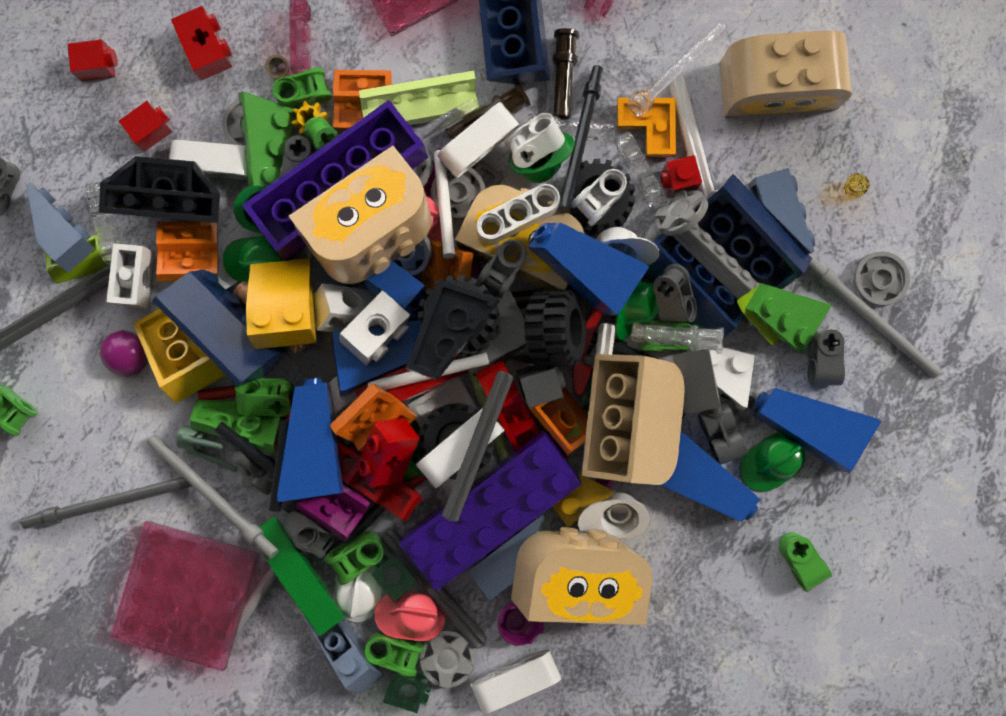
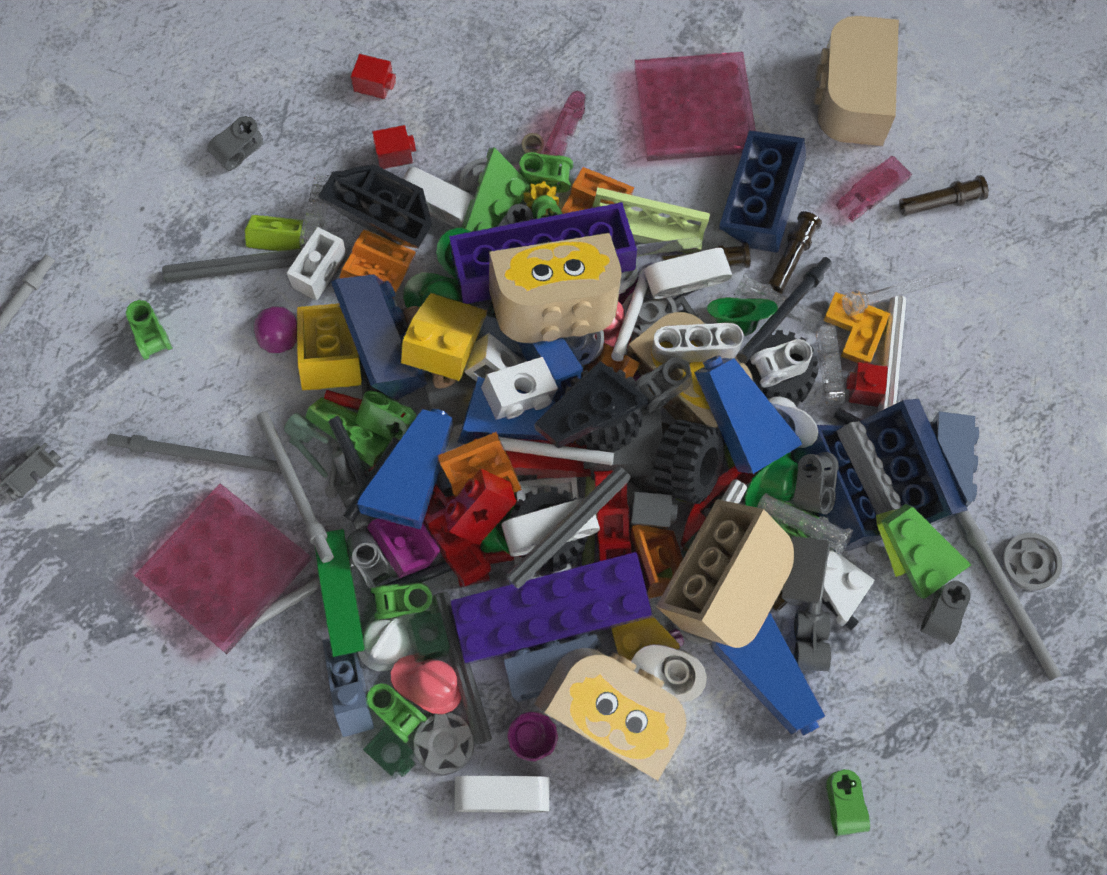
camera: 25 degrees right, 15 degrees down
(54, 232) = (271, 199): sand blue slope -> none
(192, 30) = (475, 100): red brick -> none
(536, 138) = (743, 292): white piece -> none
(681, 212) = (854, 412): light grey wheel -> none
(771, 463) = (853, 693): green piece -> none
(786, 73) = (1005, 331): tan brick -> none
(821, 428) = (910, 672): blue slope -> none
(855, 182) = (1038, 463): clear yellow hinge -> none

